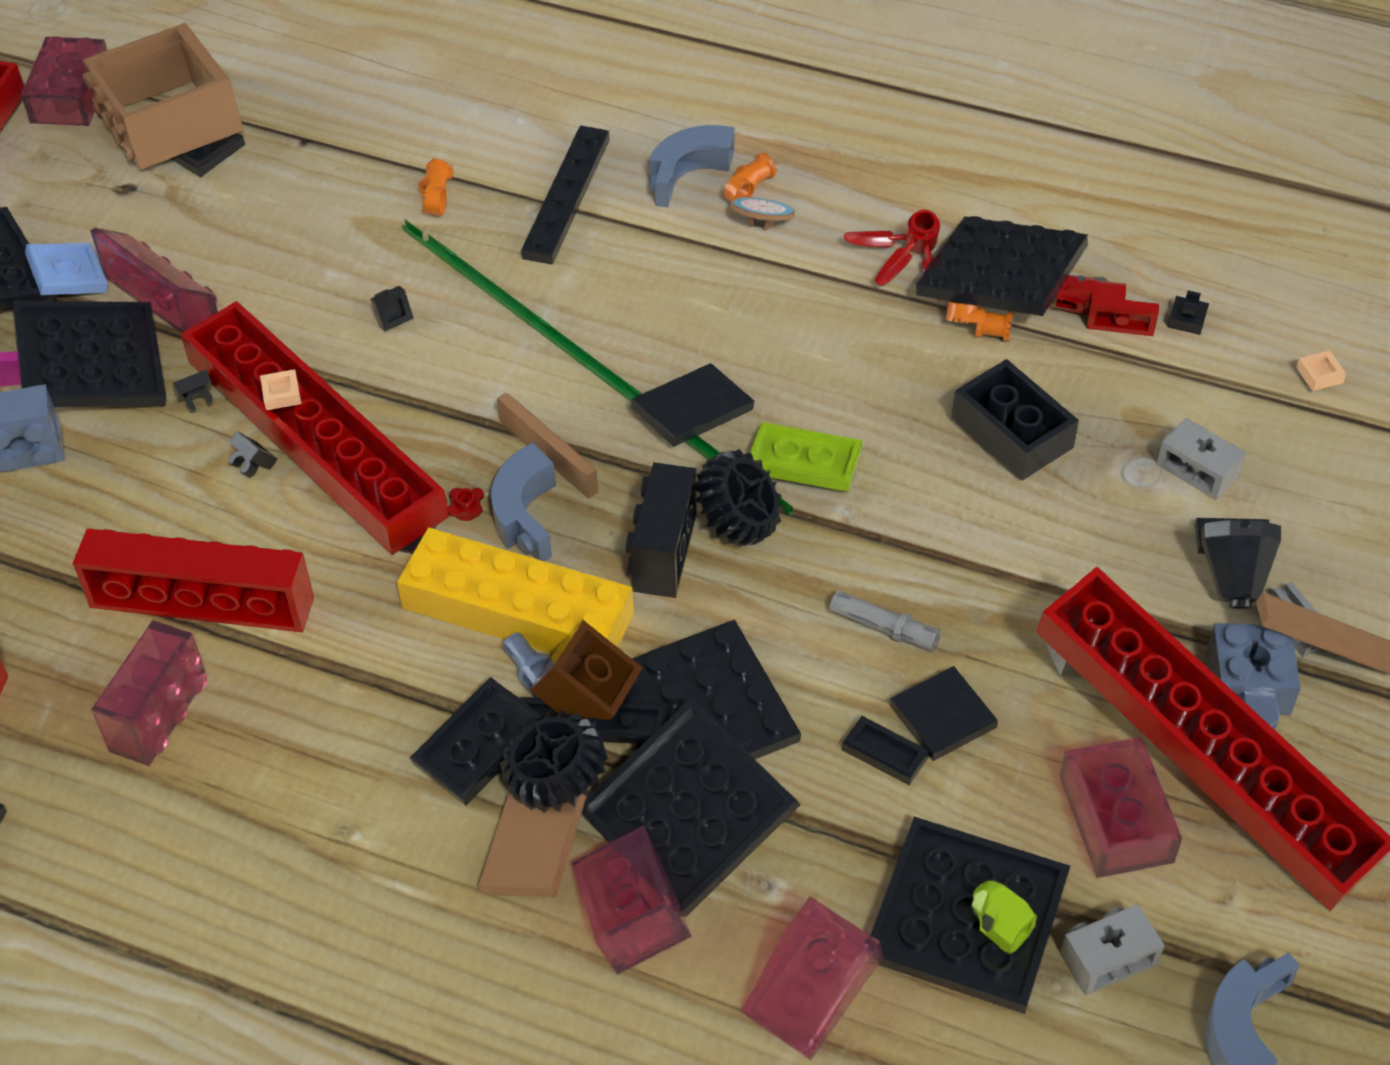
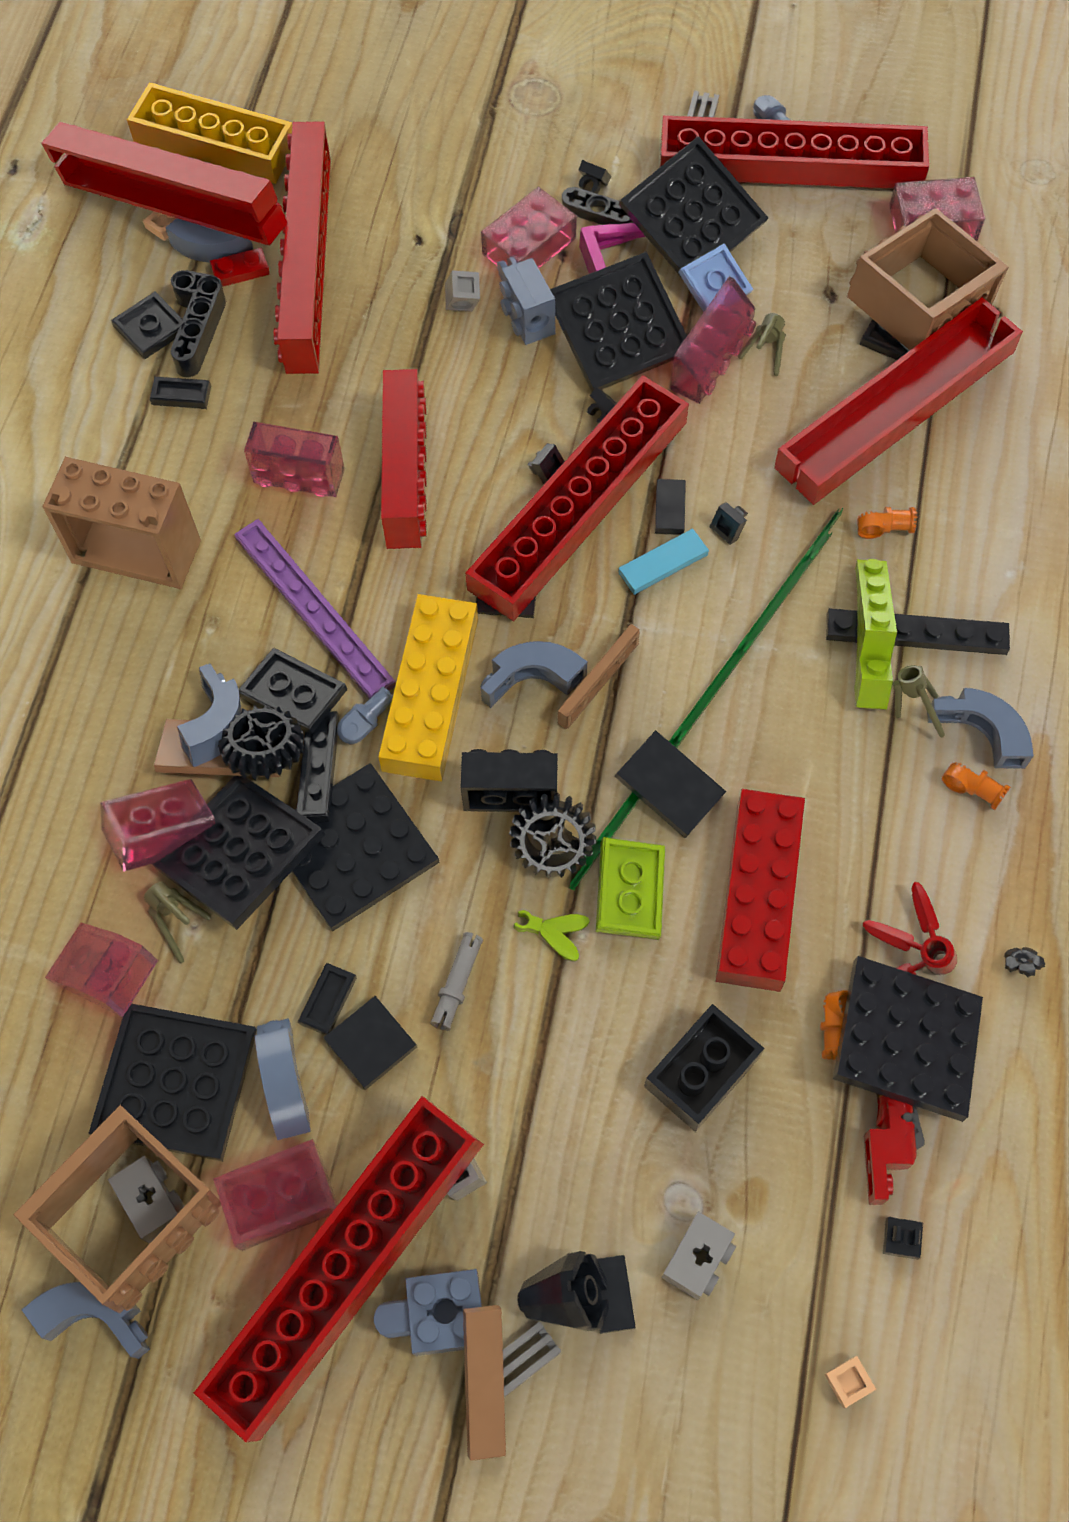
camera: 80 degrees right, 15 degrees up
(157, 235) = (769, 332): none -> olive plant
(187, 877) = (123, 522): none -> medium nougat window
(280, 389) = (587, 458): light nougat plate -> none
(302, 156) = (896, 400): none -> red piece
(347, 358) = (670, 506): none -> black tile
(361, 715) = (314, 609): none -> medium lavender tile
(416, 374) = (663, 561): none -> medium azure tile
(465, 503) = (528, 636): red plate -> none
(496, 804) = (202, 735): none -> sand blue arch
(571, 207) = (874, 635): none -> lime arch
(586, 675) = (343, 751): reddish brown slope -> none
(641, 188) = (913, 684): none -> olive plant
(732, 906) = (164, 901): none -> olive plant
(762, 209) = (934, 803): piece -> none
(828, 350) = (760, 890): none -> red brick
(838, 533) = (553, 931): none -> lime piece
(933, 183) = (1025, 960): none -> black plant
(980, 781) = (281, 1079): none -> sand blue arch
(1003, 915) = (155, 1102): lime rock -> none
(1096, 981) = (79, 1174): none -> medium nougat window

